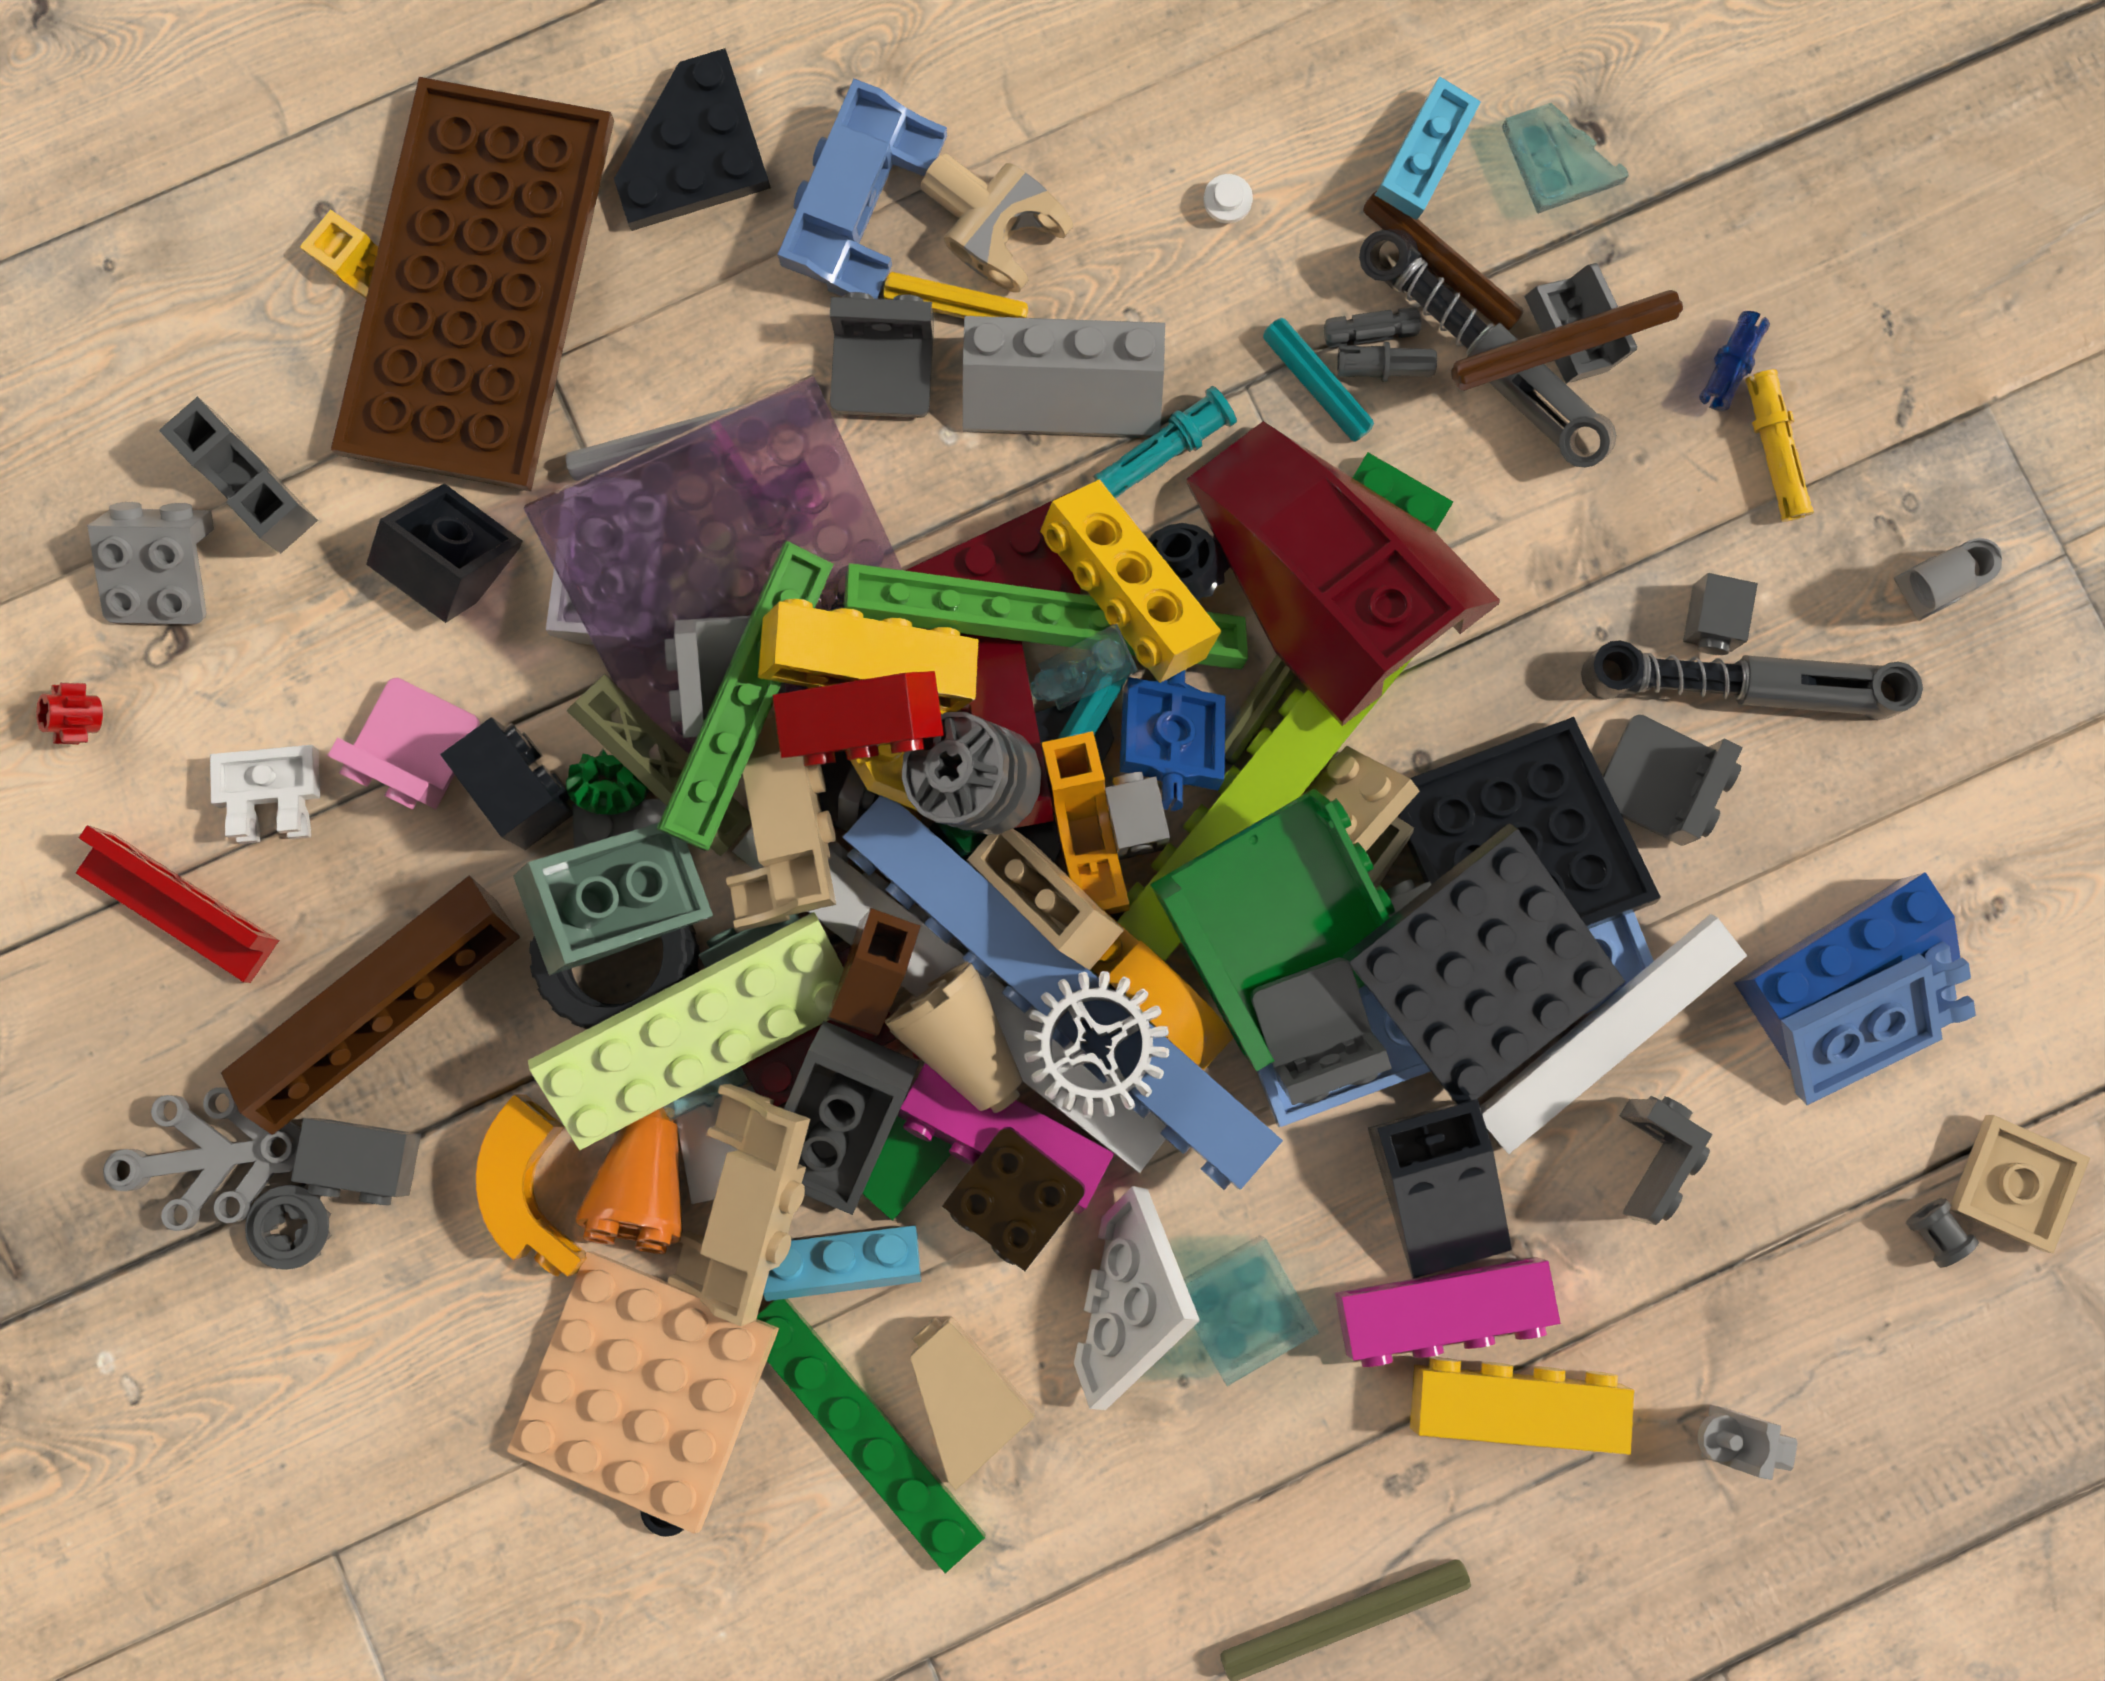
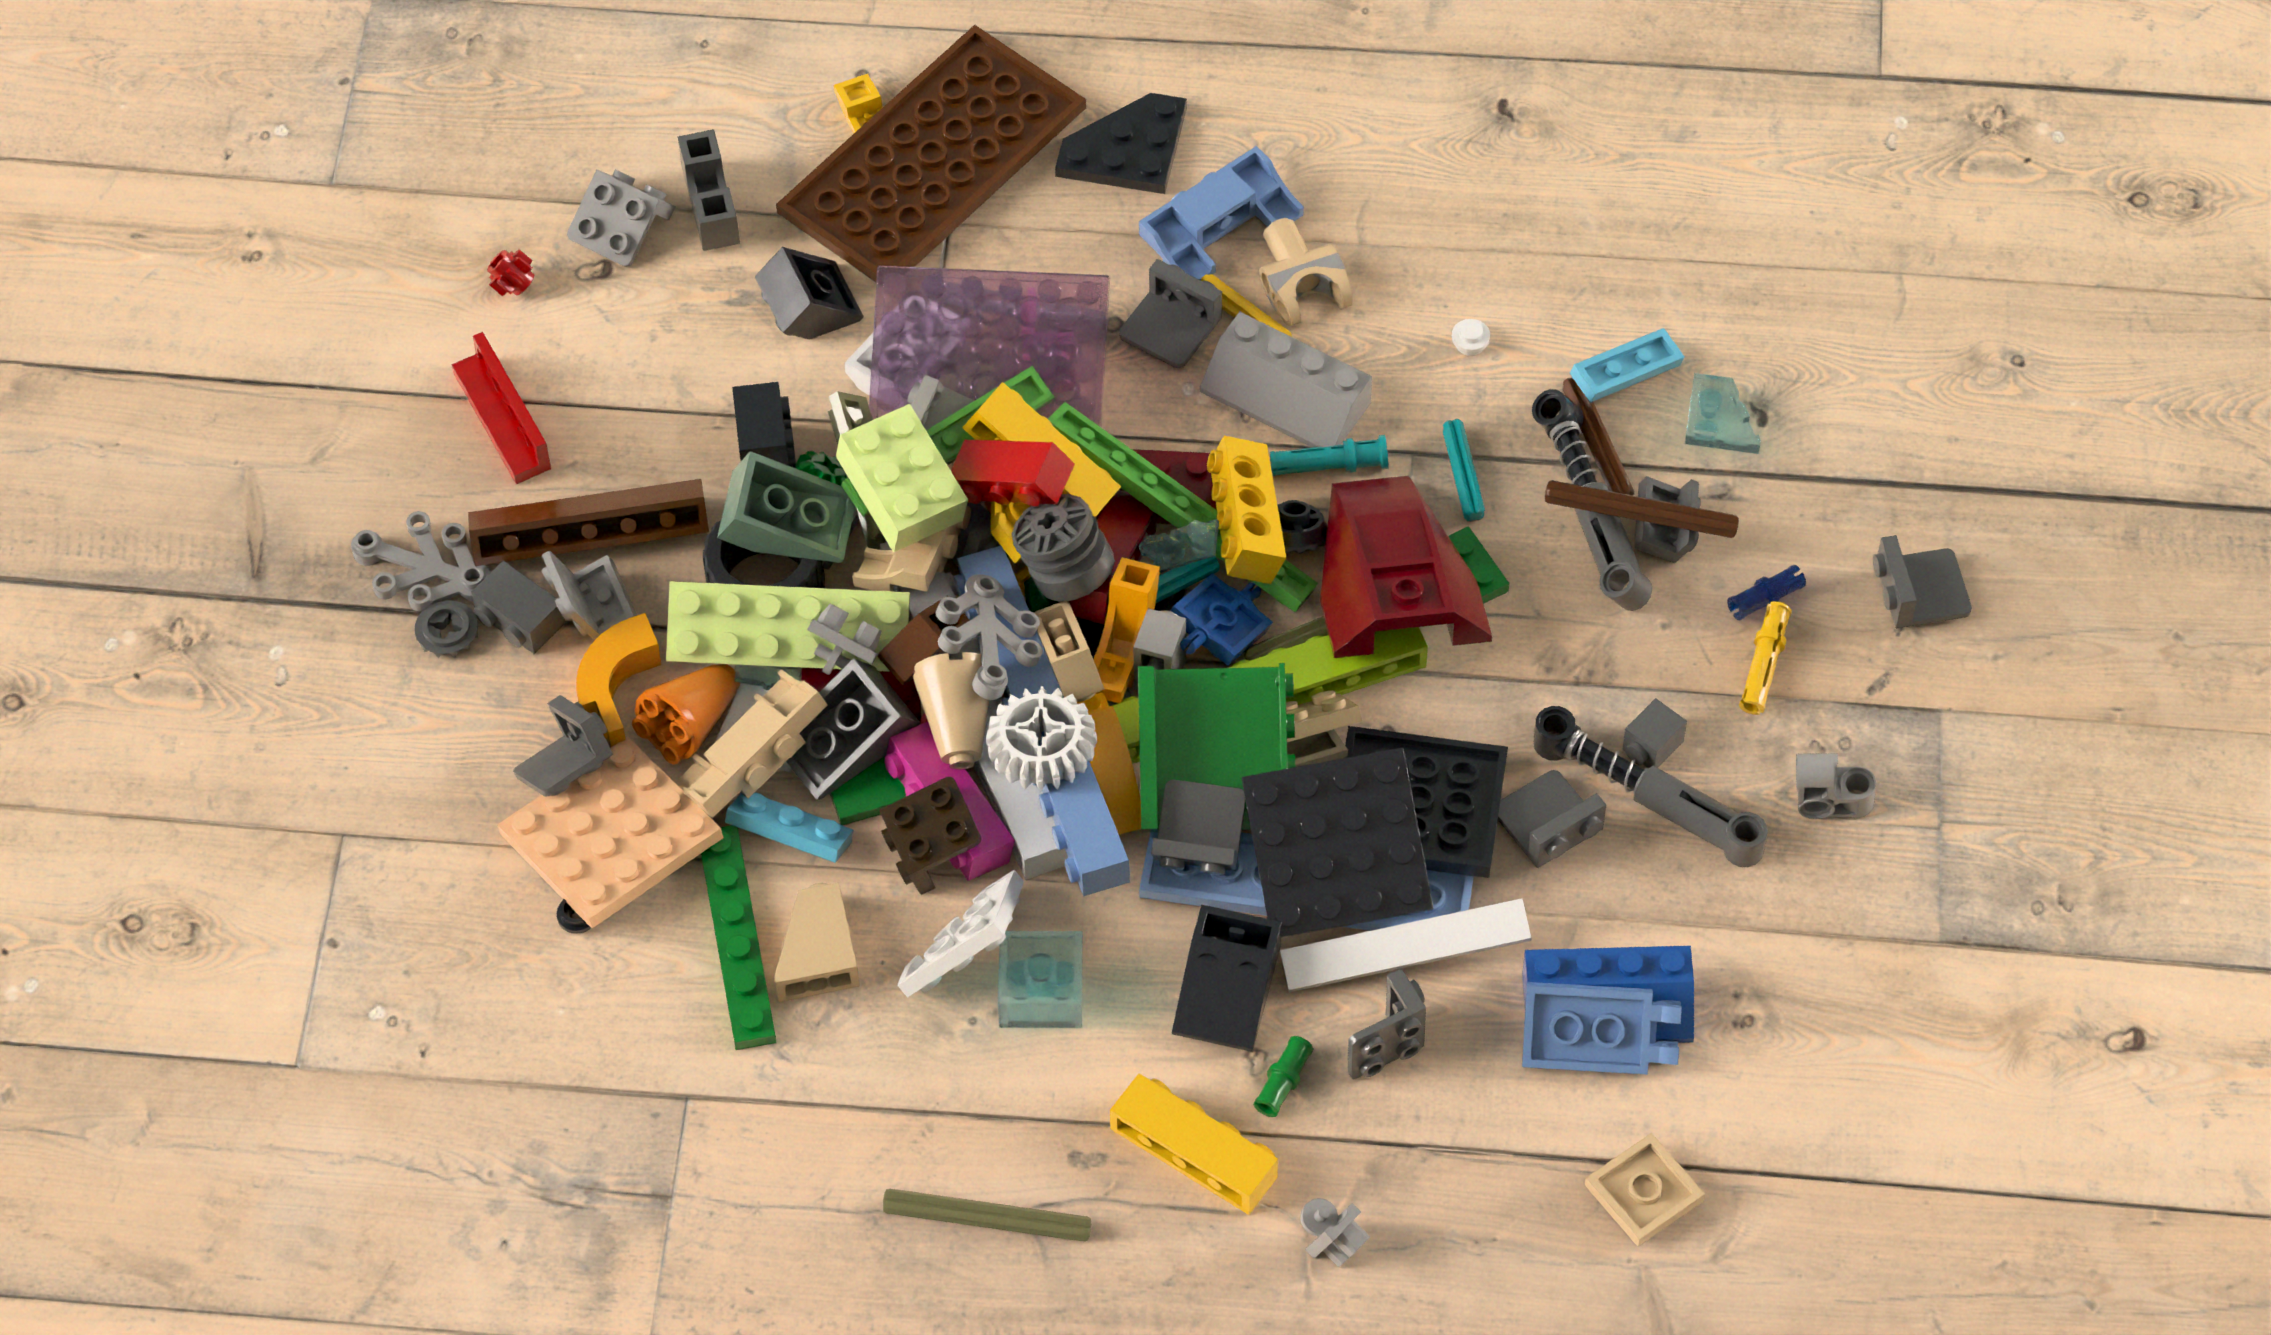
camera: 35 degrees right, 25 degrees down
(265, 777) = (607, 367): white plate -> none
(405, 744) = (704, 391): bright pink bracket -> none
(432, 1104) = (591, 596): none -> light grey bracket
(533, 1331) = (569, 757): none -> dark grey bracket
(732, 794) = (901, 477): none -> yellowish green brick
(779, 1033) = (828, 628): none -> light grey hips
(948, 929) = (986, 597): none -> light grey plant
(1372, 326) = (1522, 456): dark grey axle -> none
(1385, 361) = (1513, 478): dark grey axle -> none
(1447, 1309) = (1182, 1057): dark pink brick -> none
(1566, 1264) = (1283, 1076): none -> green pin
(1893, 261) = (1920, 585): none -> dark grey bracket
(1942, 1232) = (1567, 1190): dark grey bush -> none

